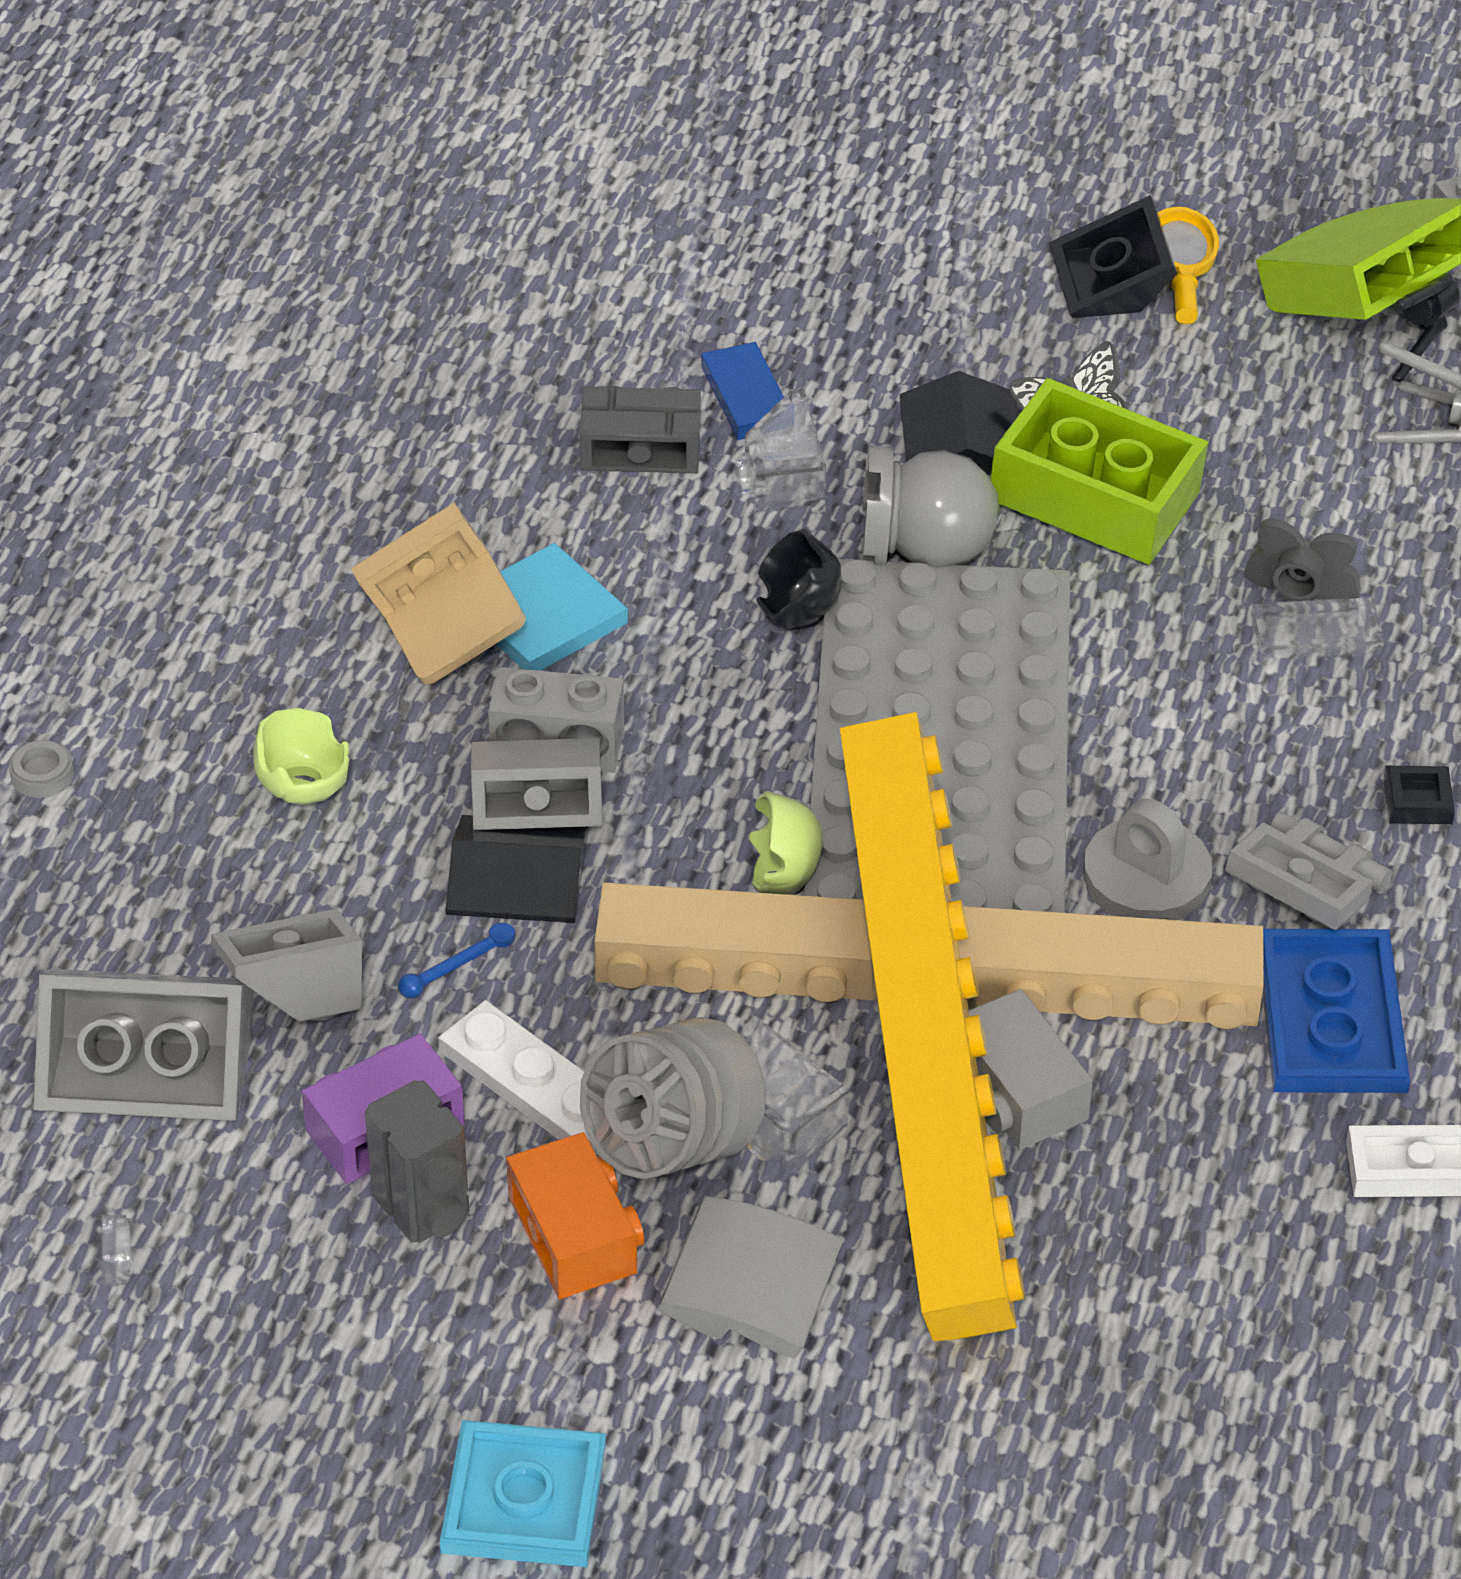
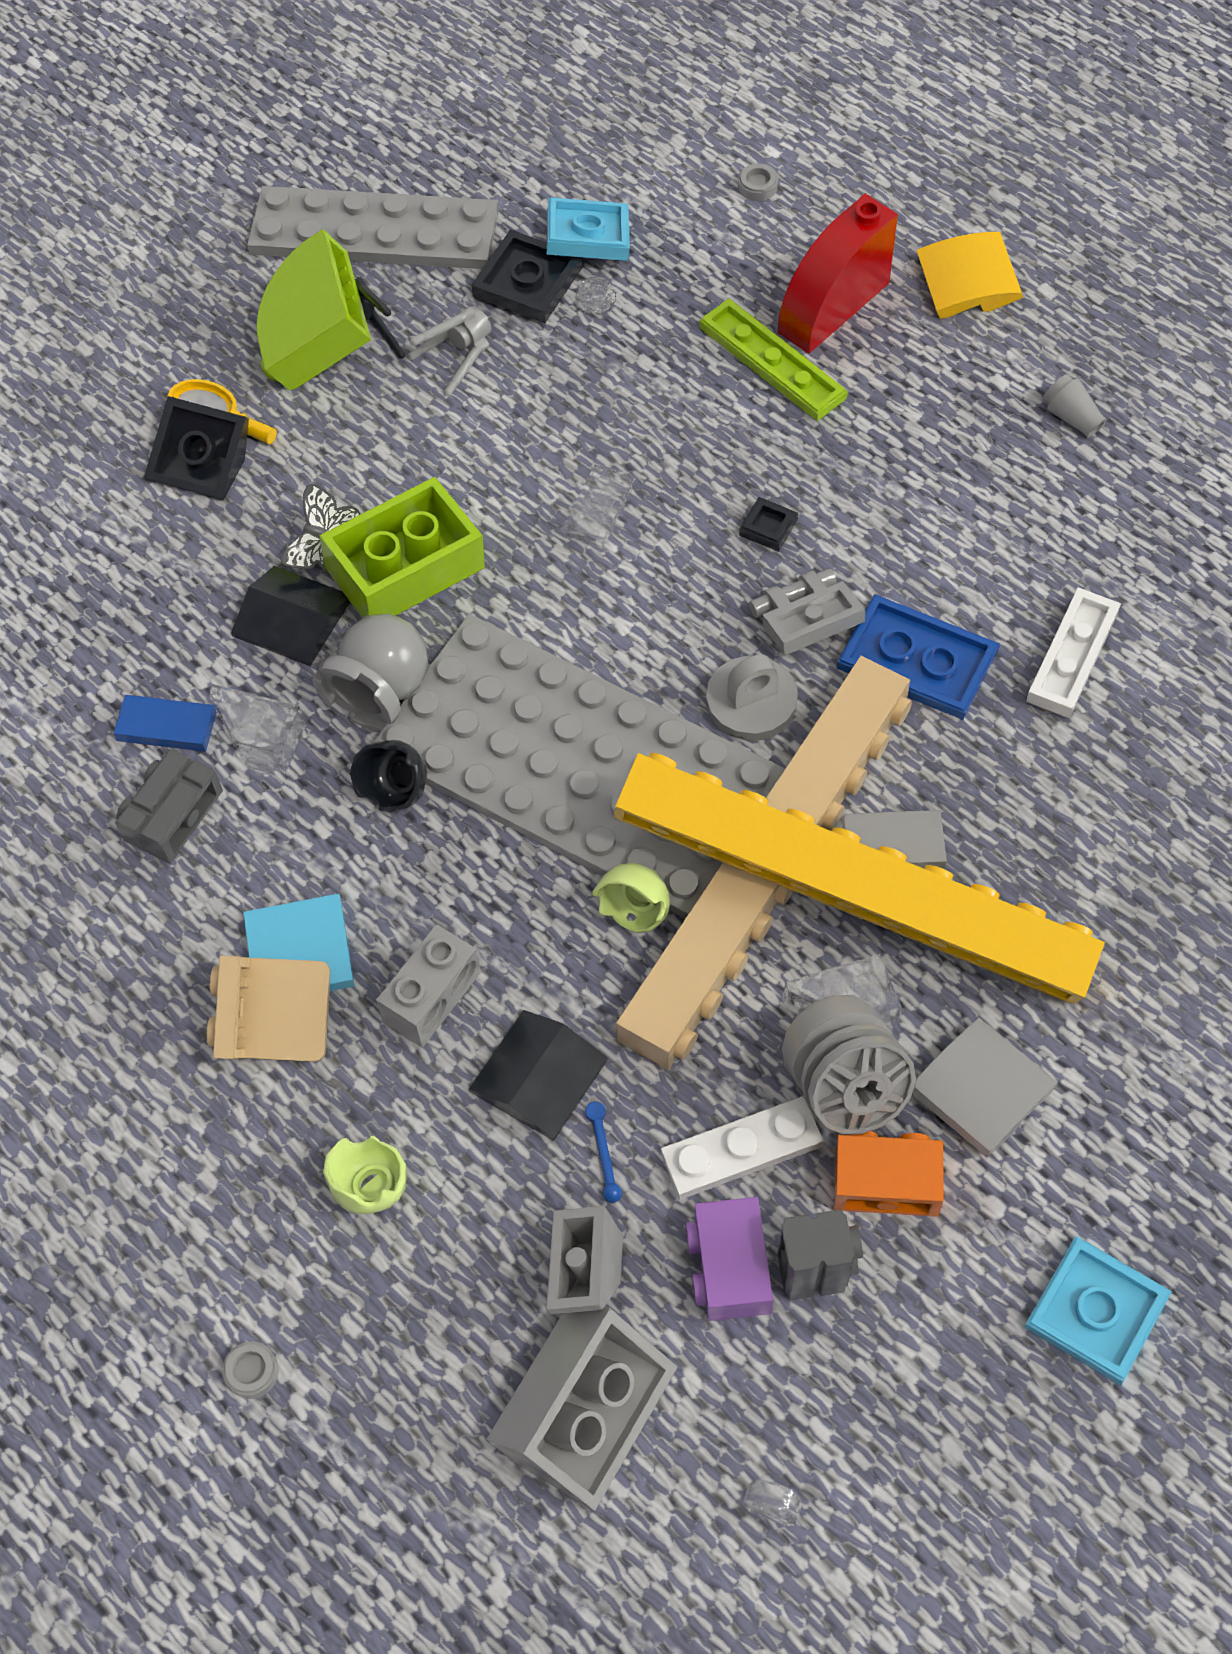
camera: 60 degrees left, 15 degrees up
(536, 784) = (486, 1026): light grey brick -> none
(1303, 566) = (556, 486): dark grey animal -> none

